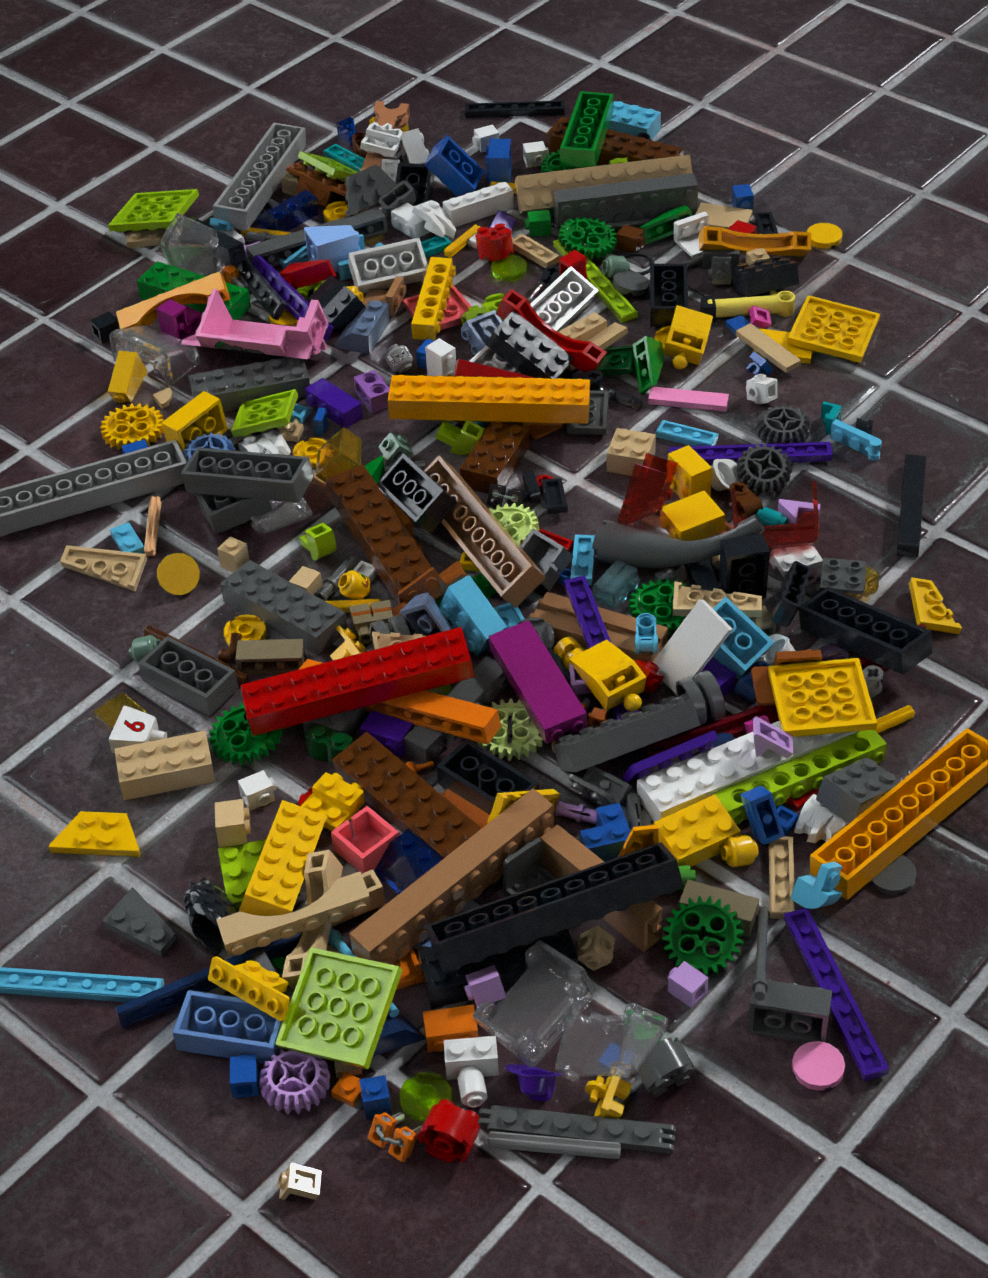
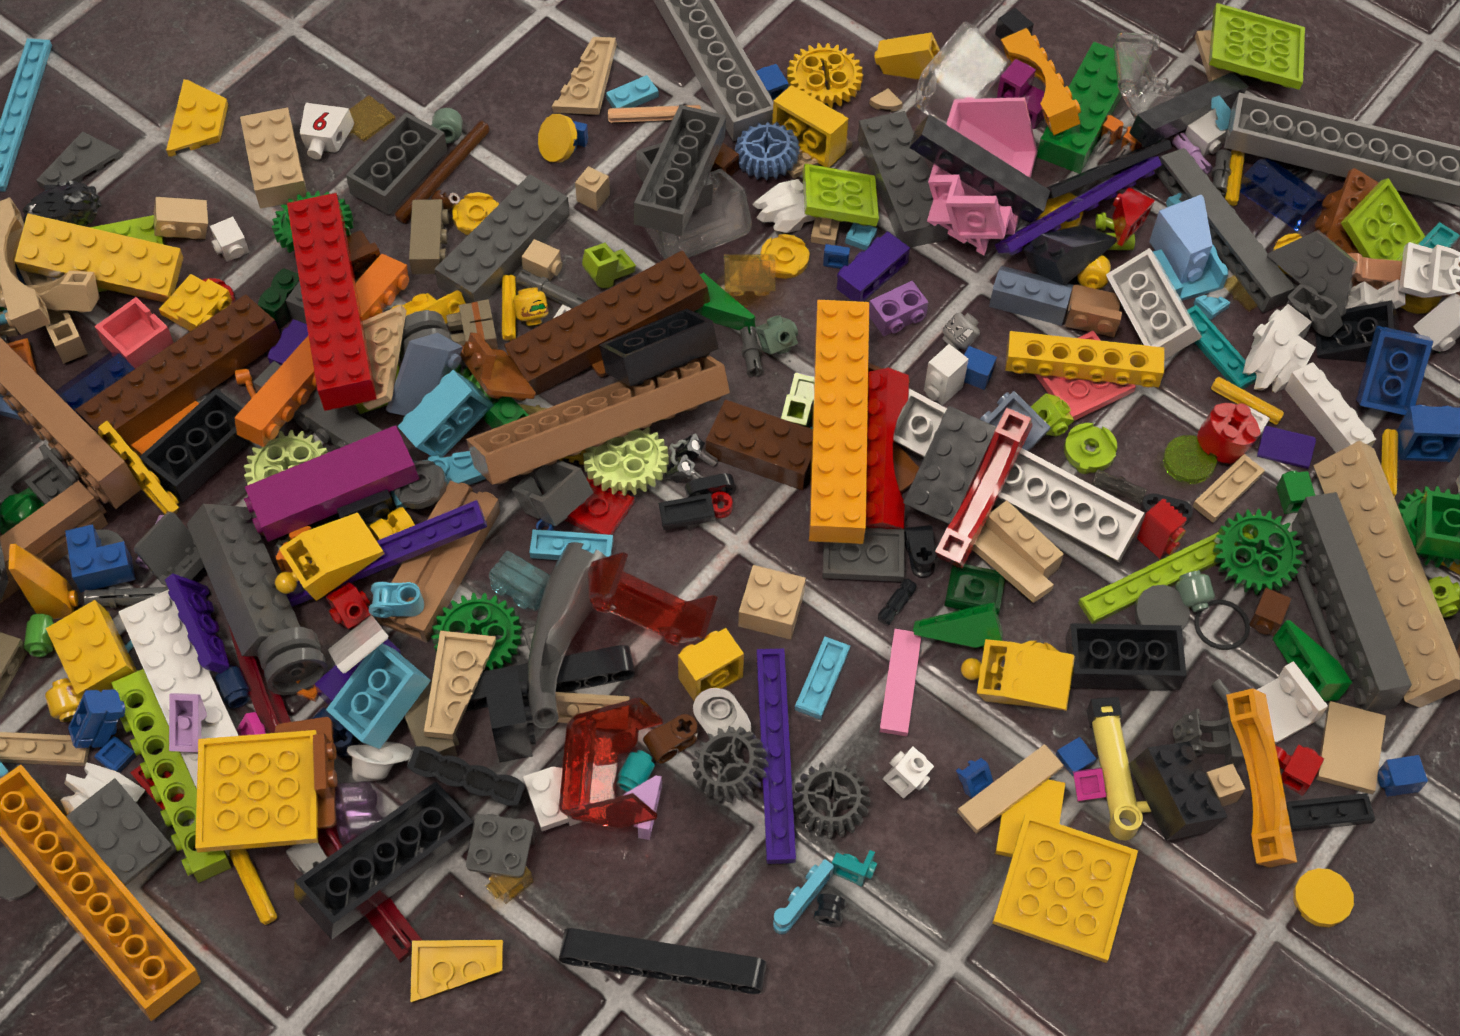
camera: 85 degrees right, 15 degrees up
(265, 324) = (979, 168): none -> black brick
(692, 518) = (611, 660): yellow brick -> none

